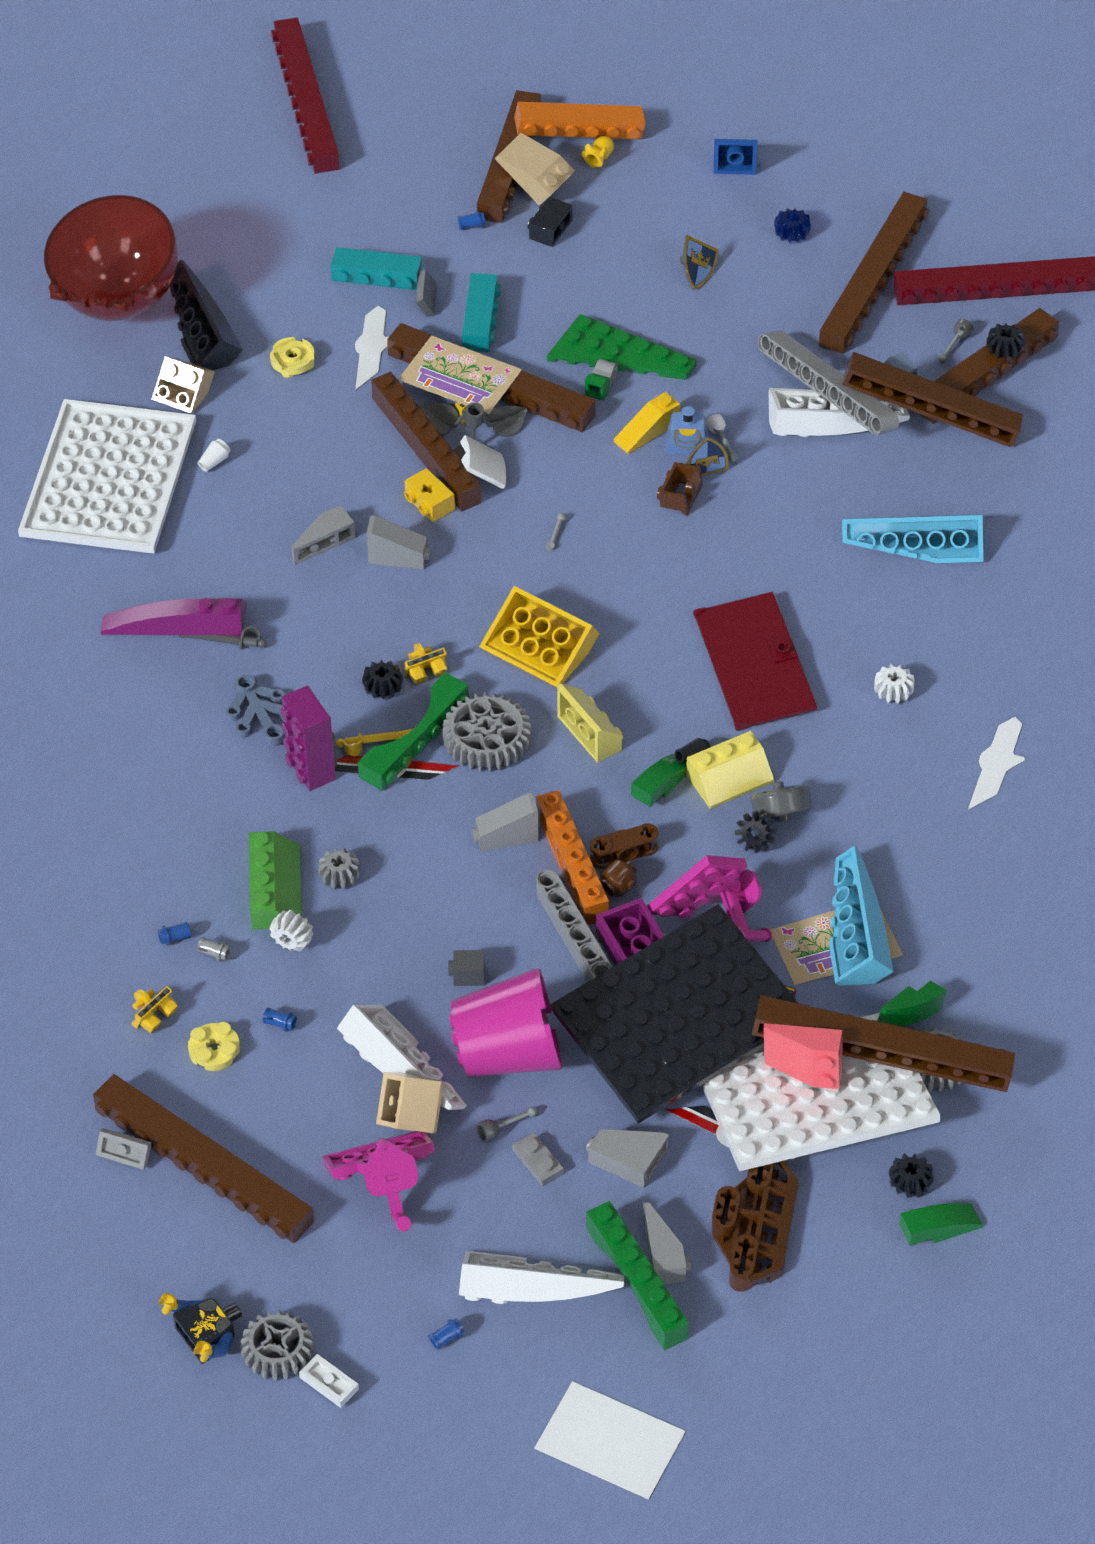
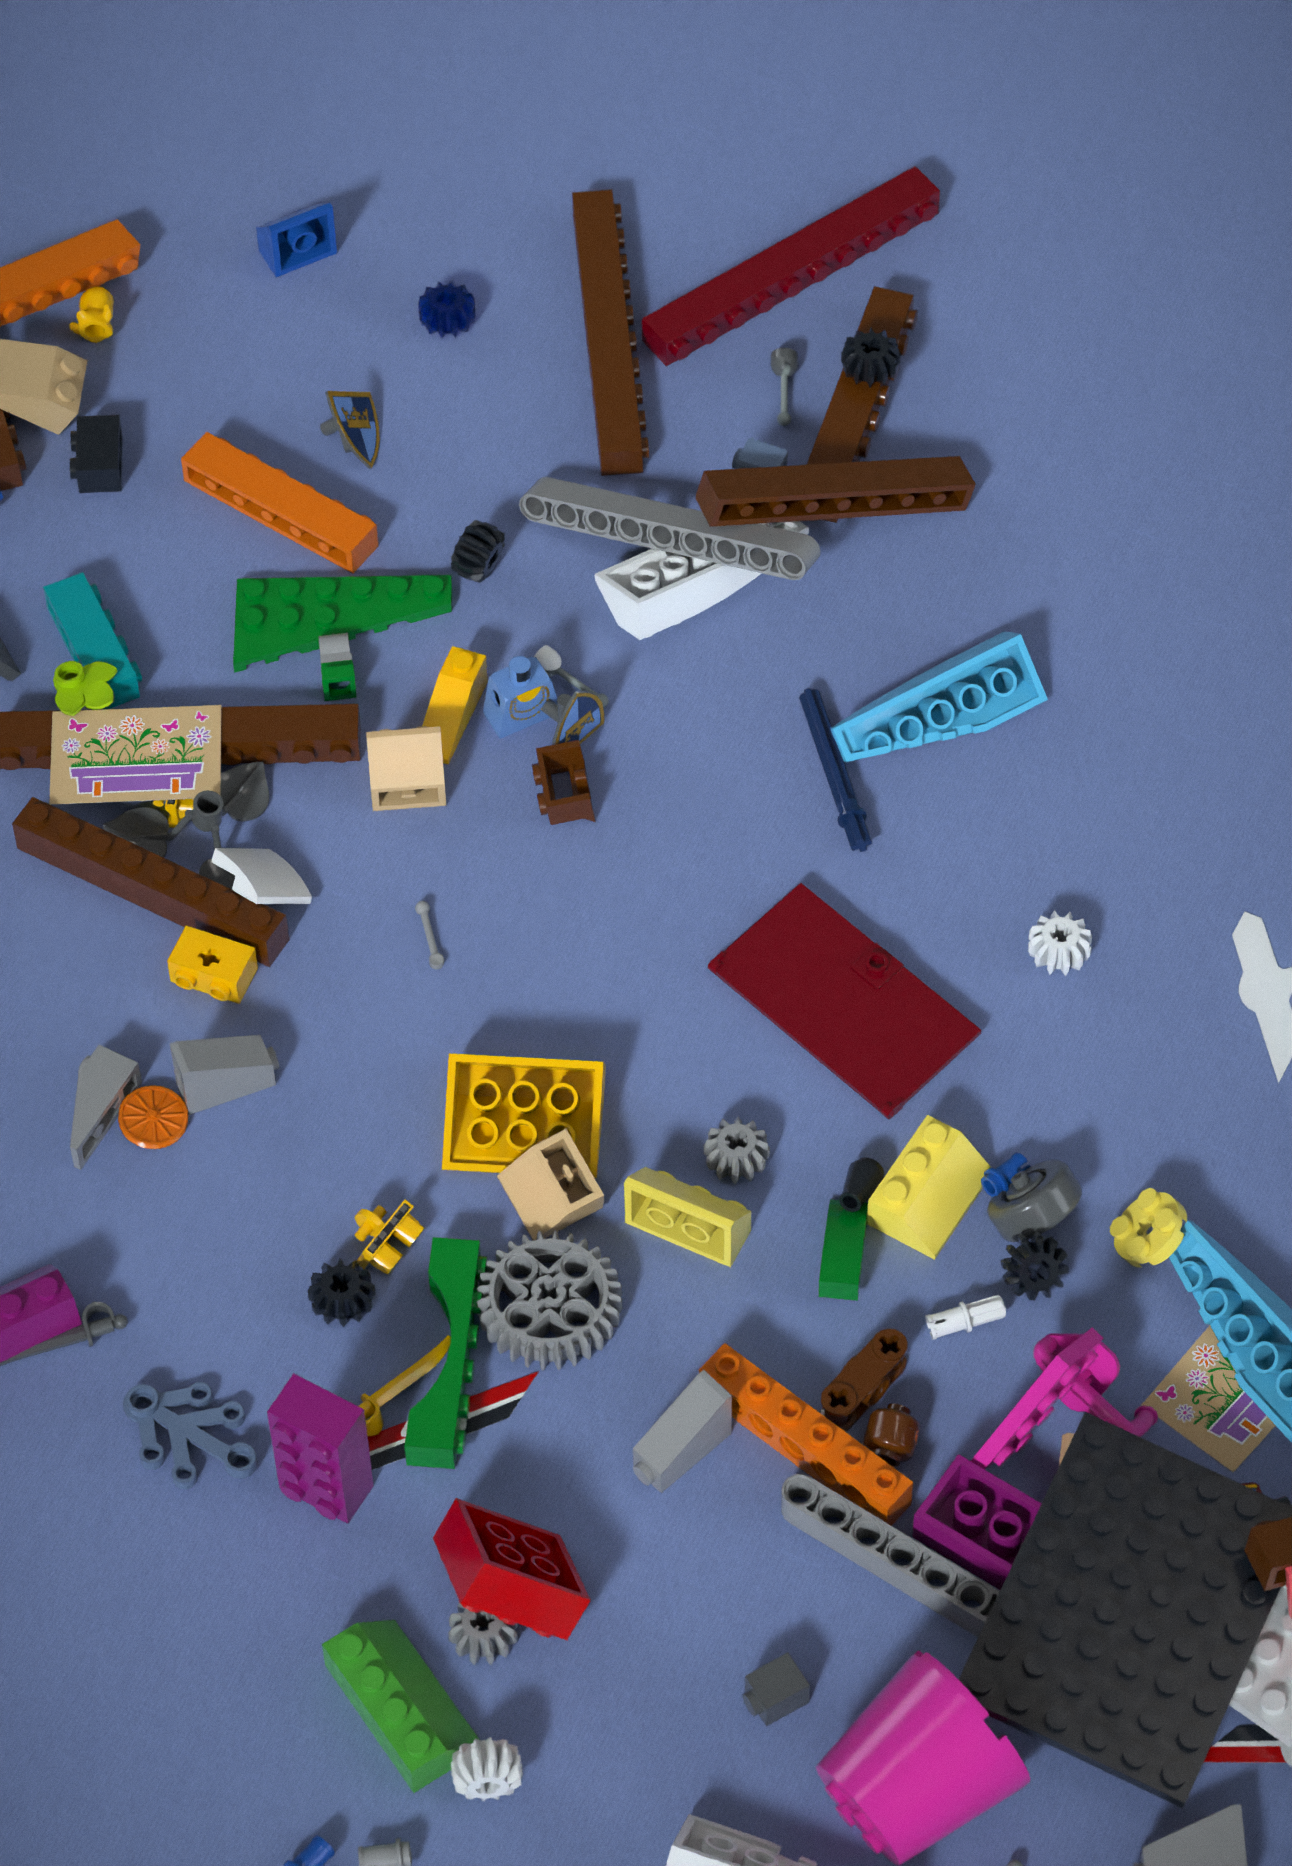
camera: 30 degrees left, 5 degrees up
(347, 555) = (153, 1117): none -> orange wheel
(368, 843) = (511, 1570): none -> red slope
(455, 329) = (83, 686): none -> lime plate
(527, 676) = (551, 1186): none -> tan slope
(598, 442) = (406, 768): none -> tan slope
(630, 285) = (280, 502): none -> orange brick
(639, 705) = (736, 1150): none -> light grey gear
(702, 841) = (965, 1316): none -> white axle
(716, 352) = (477, 551): none -> black gear
(766, 783) = (999, 1179): none -> blue pin
(827, 570) = (850, 816): none -> dark blue axle
(832, 843) = (1149, 1210): none -> light yellow plate

